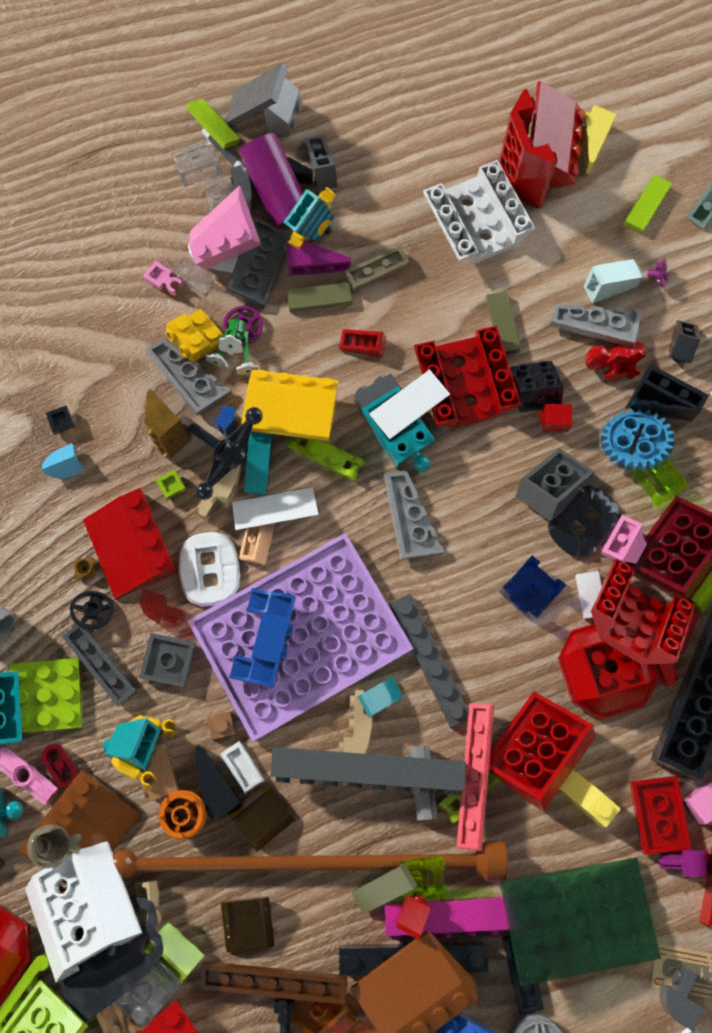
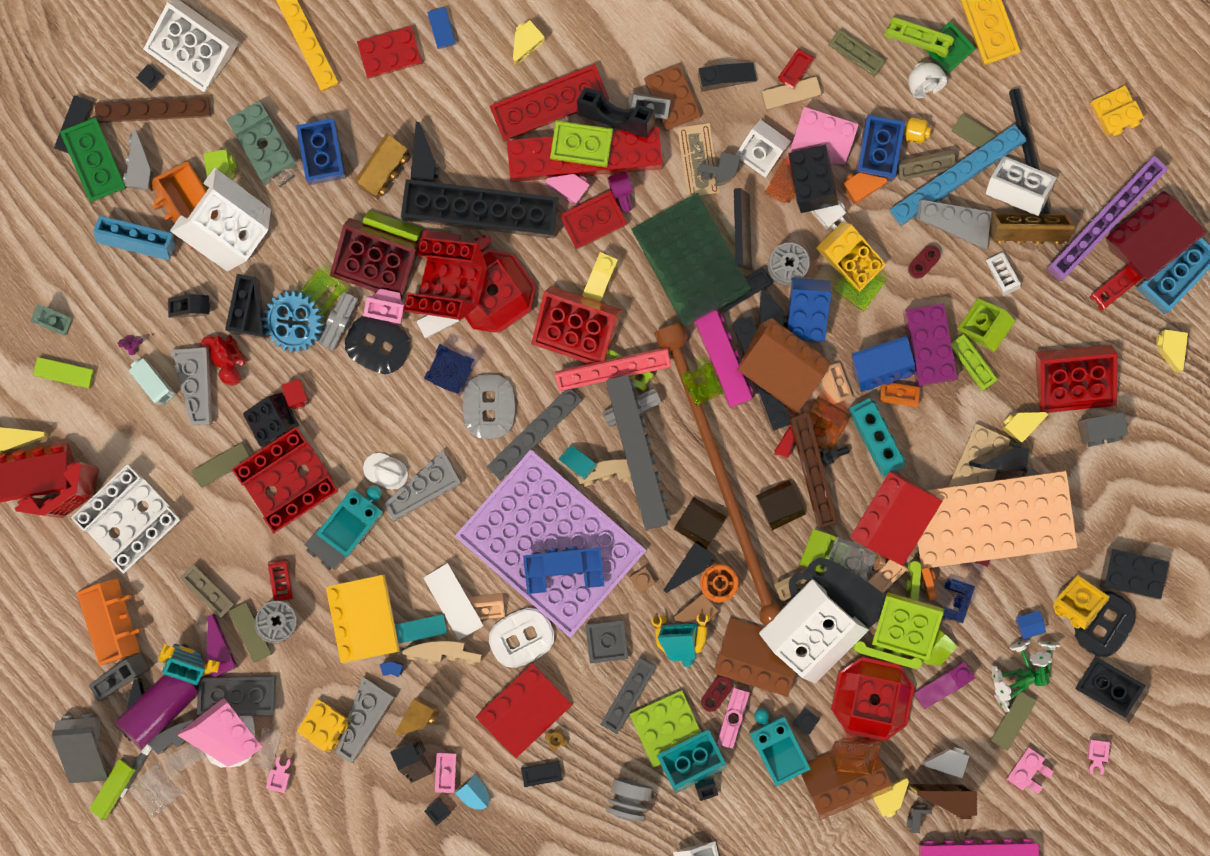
camera: 110 degrees left, 10 degrees up
(50, 845) = (775, 670): dark tan hat -> none
(55, 541) = (541, 774): none -> black tile
(91, 610) = (588, 718): black wheel -> none
(97, 441) = (445, 772): none -> bright pink plate
(124, 405) = (411, 760): none -> black wedge
(155, 607) = (567, 669): clear red brick -> none
(170, 484) = (462, 695): lime plate -> none
(227, 452) = (424, 653): black piece -> none
(232, 344) = (310, 690): plant -> none
(242, 767) = (668, 551): white tile -> none
(249, 322) = (298, 689): magenta wheel -> none
(317, 958) = (784, 447): none -> red slope
(319, 330) = (278, 633): none -> light grey wheel
(328, 456) = (393, 570): lime plate -> none
(379, 169) = (108, 621): none -> orange piece
(384, 888) = (719, 411): olive tile -> none
(409, 404) = (328, 519): white sticker -> none
(412, 915) = (730, 383): red slope -> none
(441, 485) = (385, 471): none -> white piece
(472, 634) = (474, 406): none -> light grey piece
(489, 999) = (770, 309): none -> black slope
(553, 484) = (354, 378): dark grey slope -> none
(600, 1001) = (742, 229): none -> black tile
(623, 487) = (338, 321): none -> light grey piece

